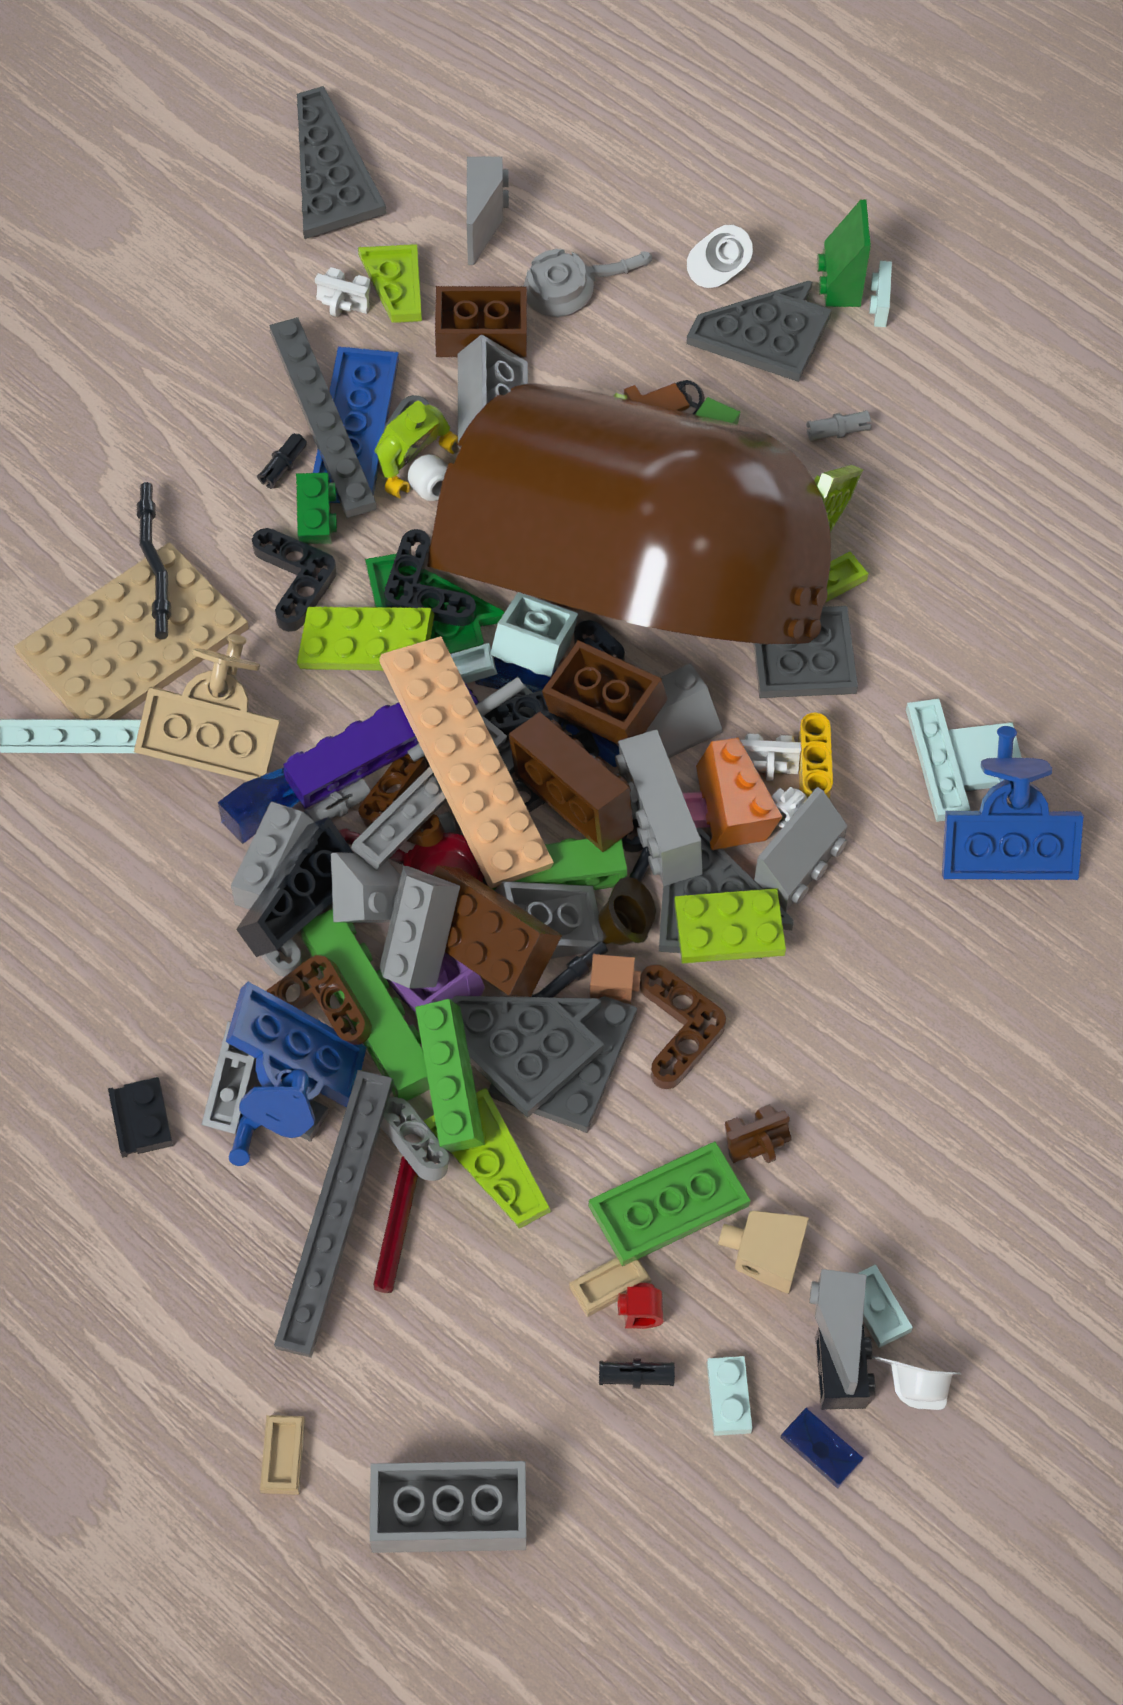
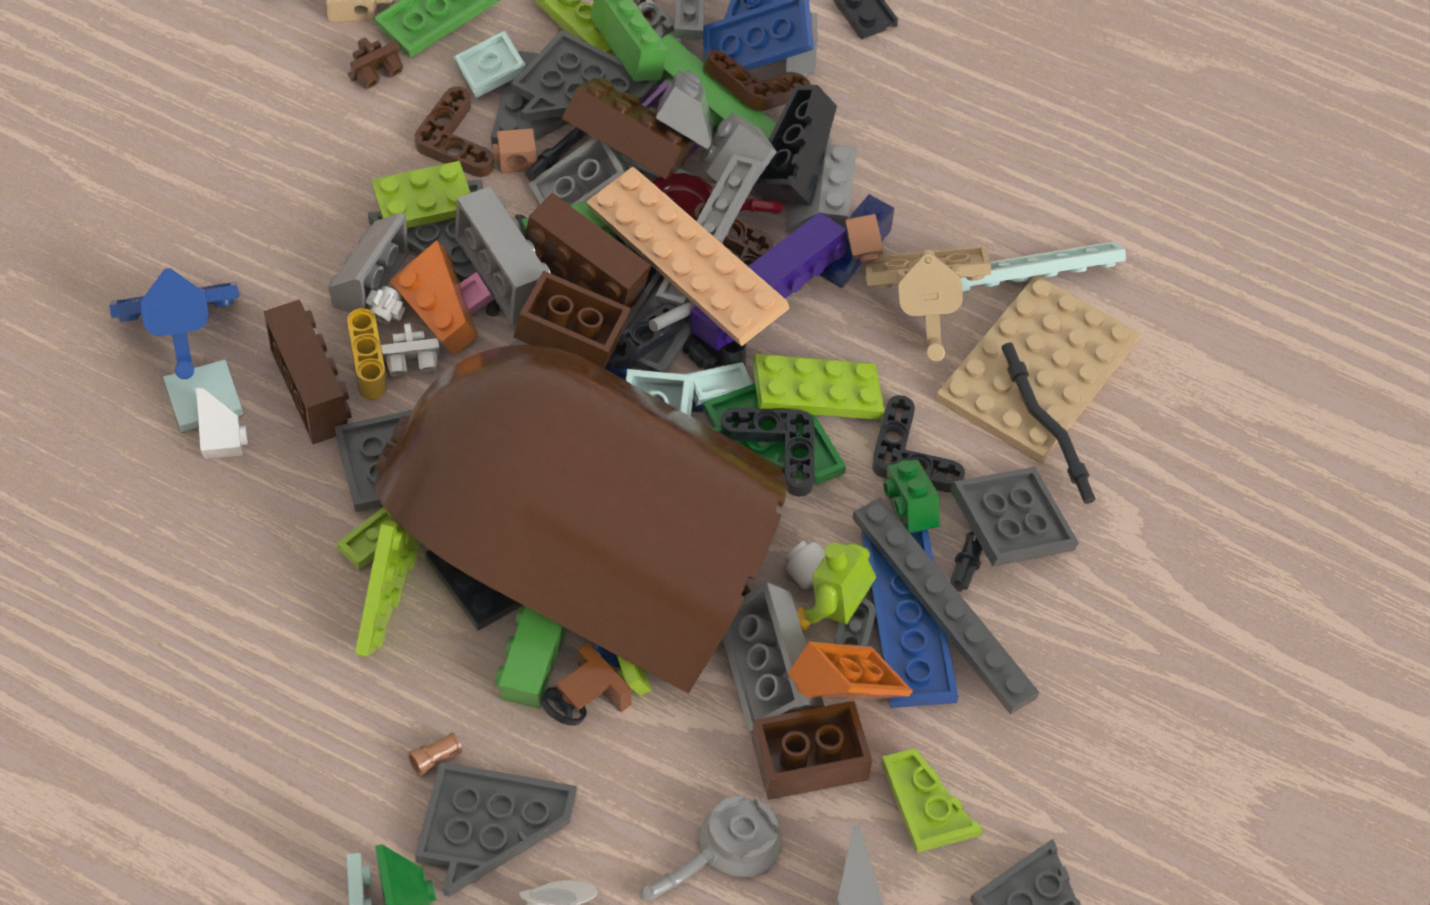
camera: 165 degrees right, 5 degrees down
(224, 481) = (1013, 516): none -> dark grey plate
(265, 765) = (864, 238): none -> nougat brick
(343, 295) = (978, 766): white hips -> none
(433, 342) = (845, 673): none -> orange slope
(619, 1104) = (490, 64): none -> light aqua tile
(627, 913) = (516, 188): dark brown piece -> none
(809, 386) = (429, 756): none -> nougat pin
(838, 425) = (366, 725): light grey pin -> none
(880, 735) = (307, 370): none -> reddish brown brick
(937, 757) = (250, 379): light aqua plate -> none
(973, 701) = (218, 428): none -> white slope

